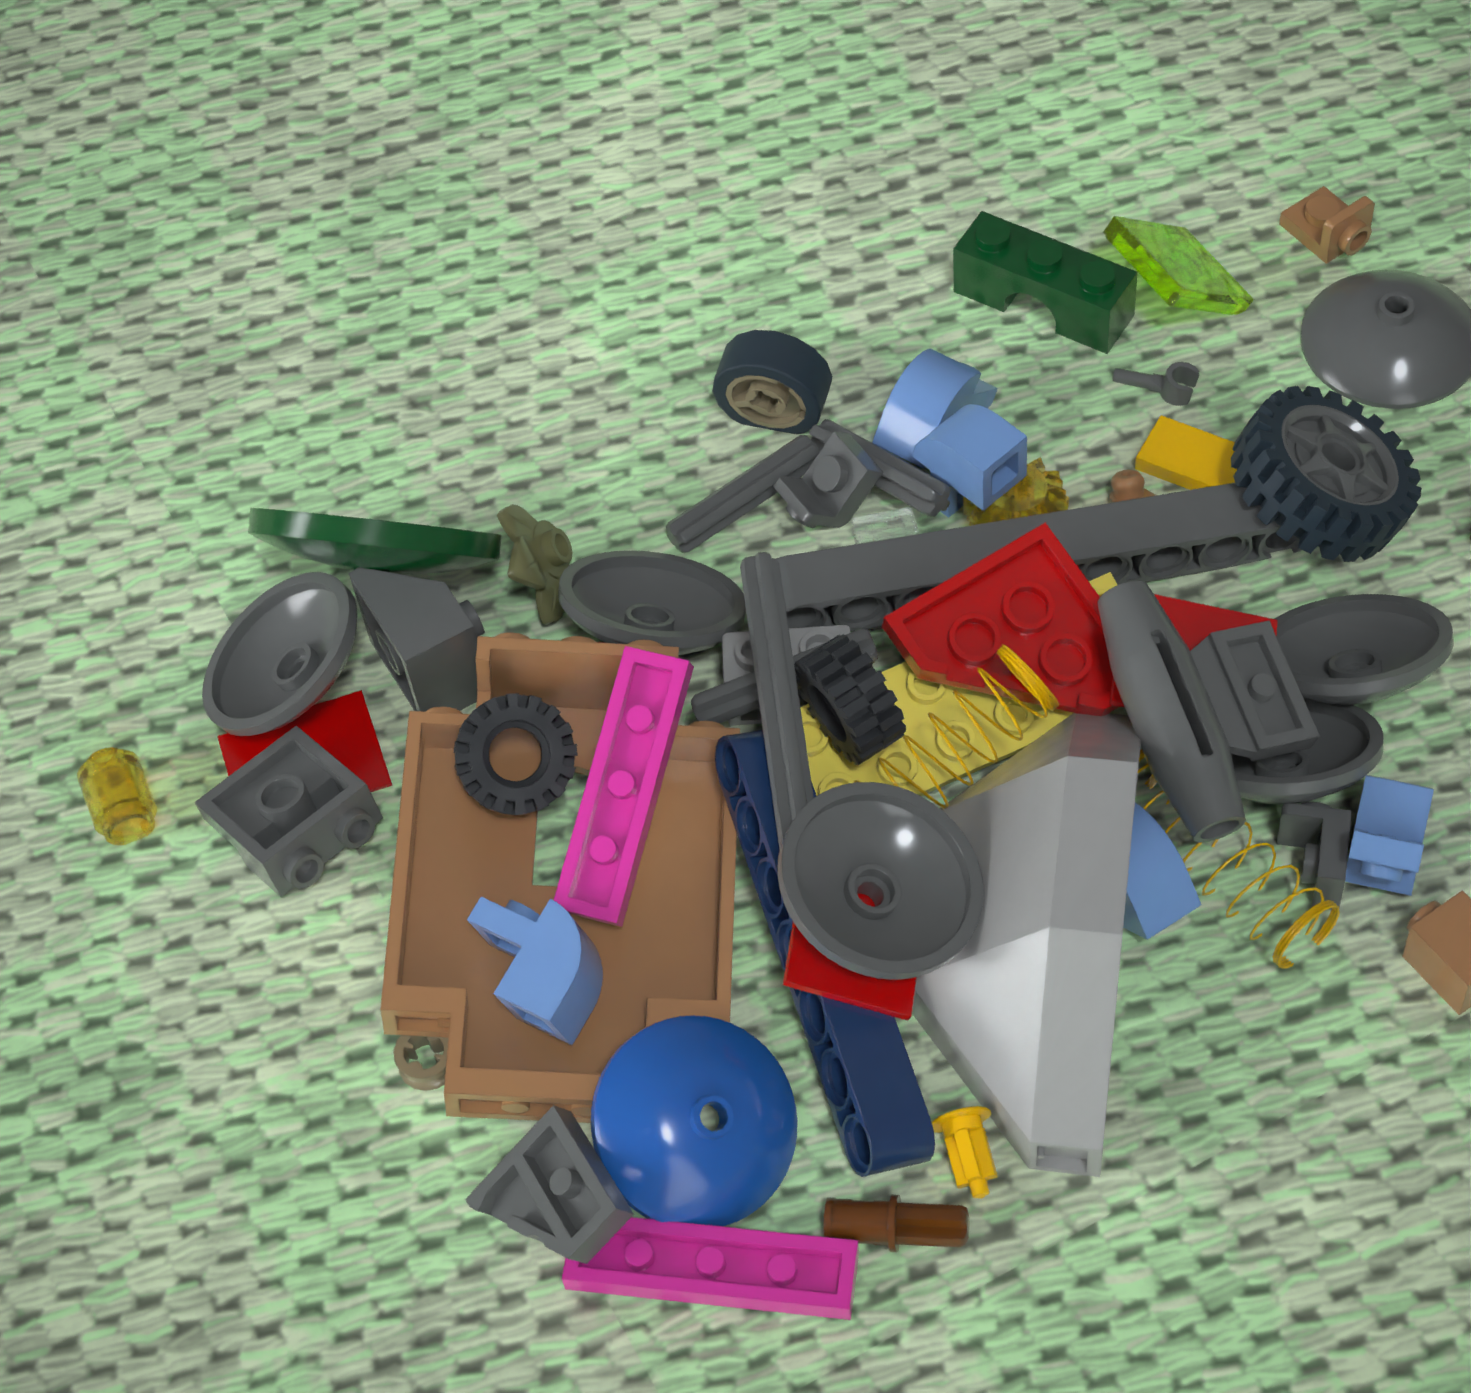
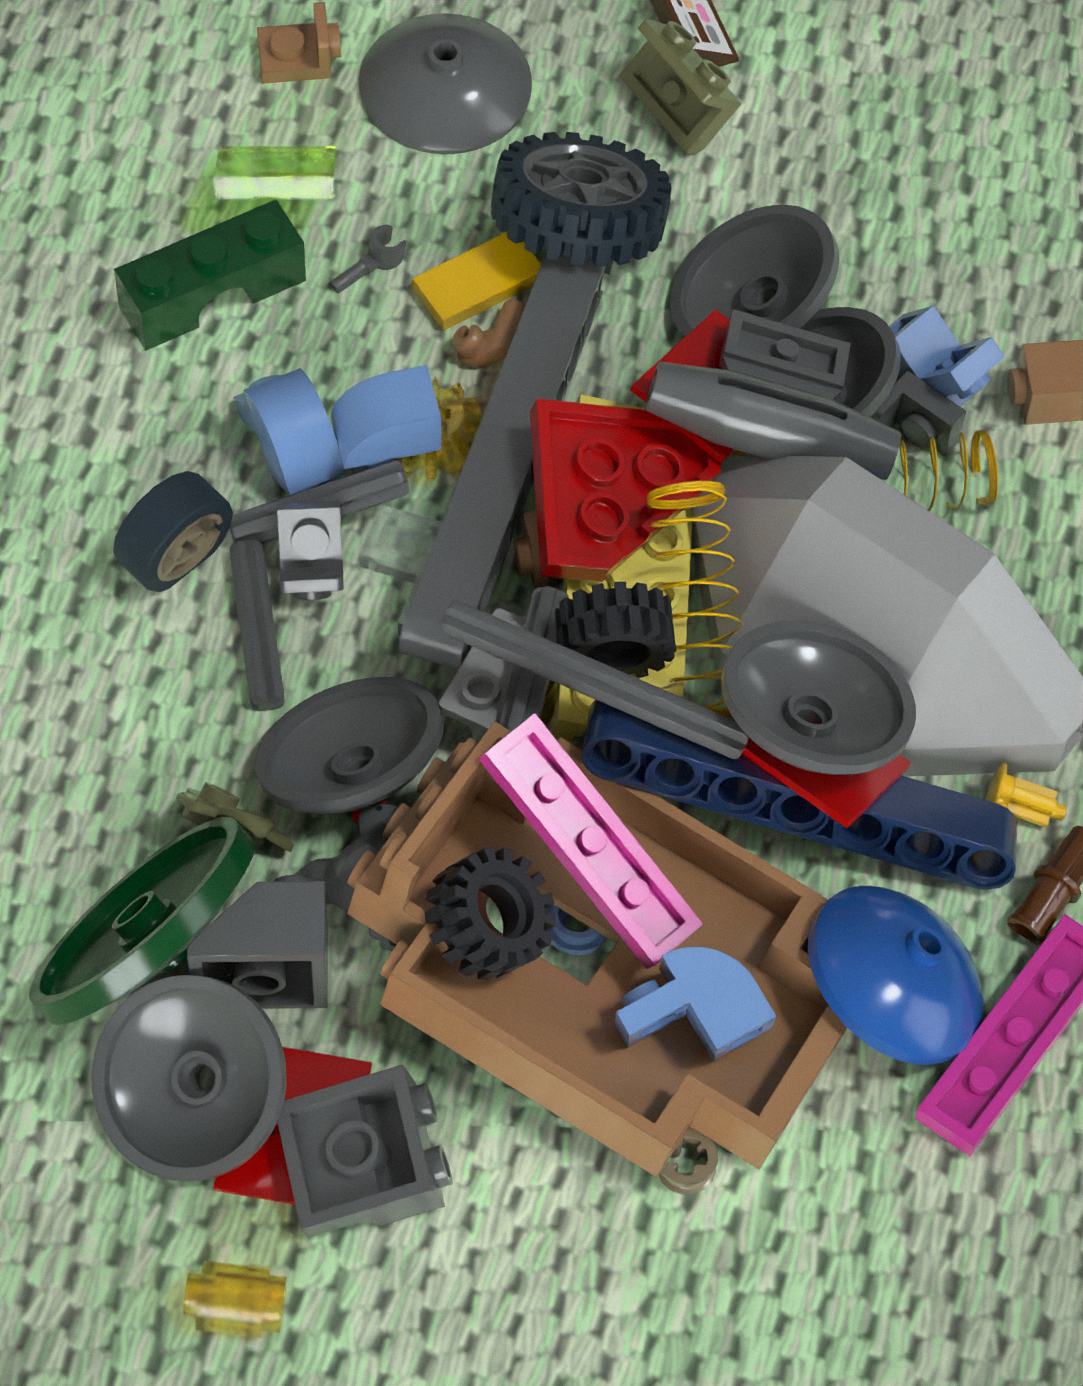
camera: 70 degrees left, 5 degrees up
(555, 1190) = (902, 1108): dark grey wing -> none

